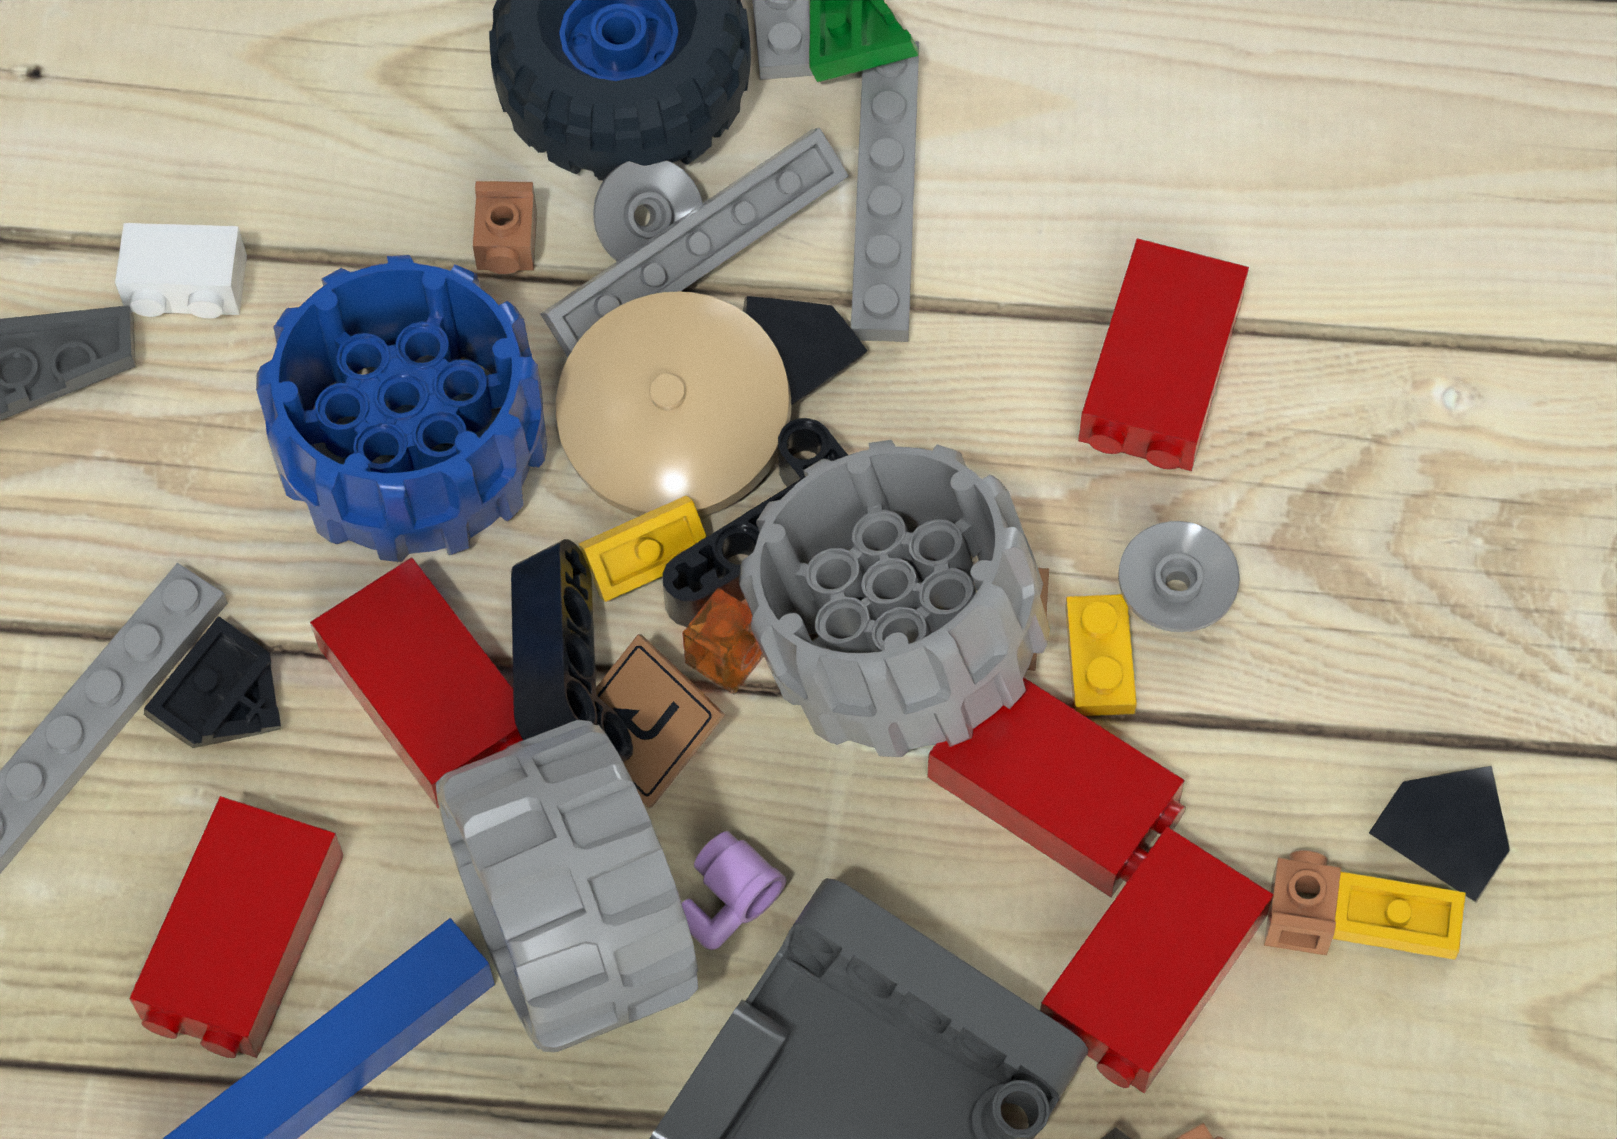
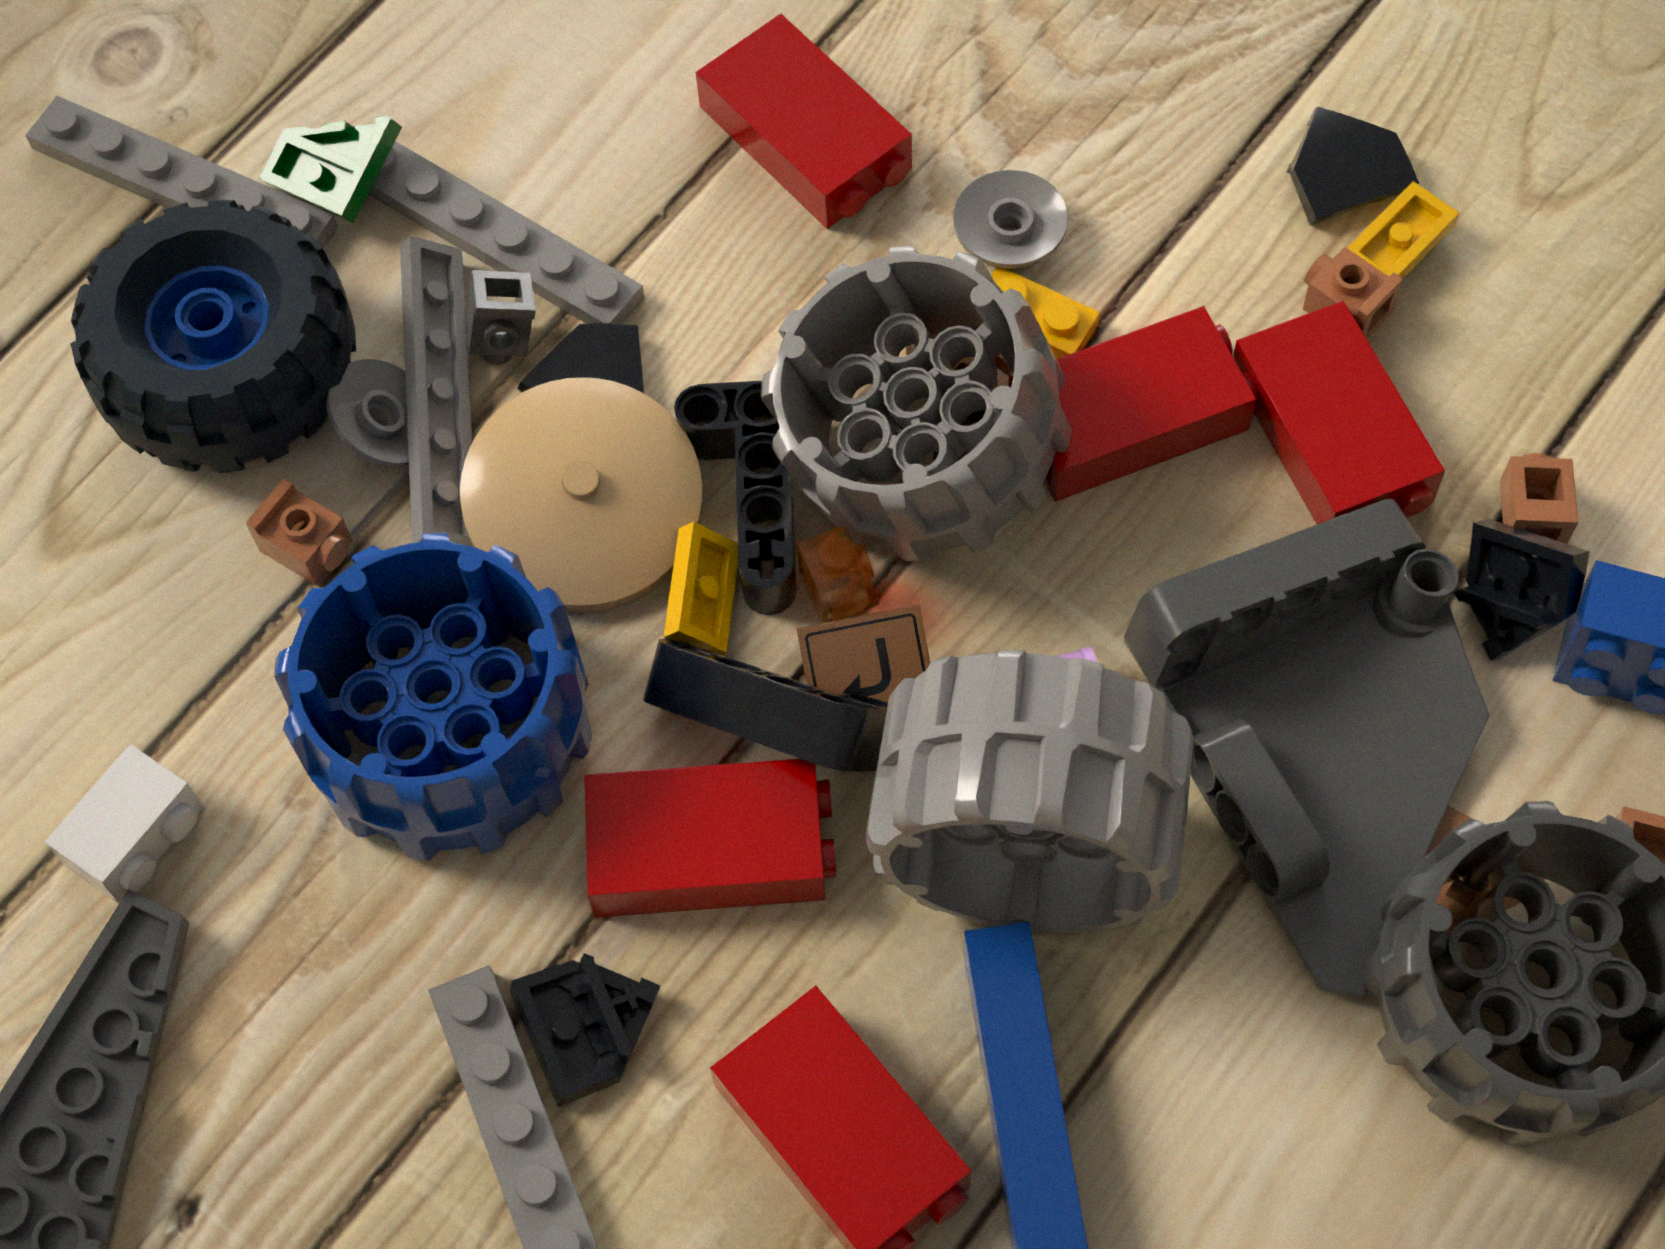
camera: 55 degrees left, 0 degrees up
(781, 248) = (498, 327): none -> dark grey brick

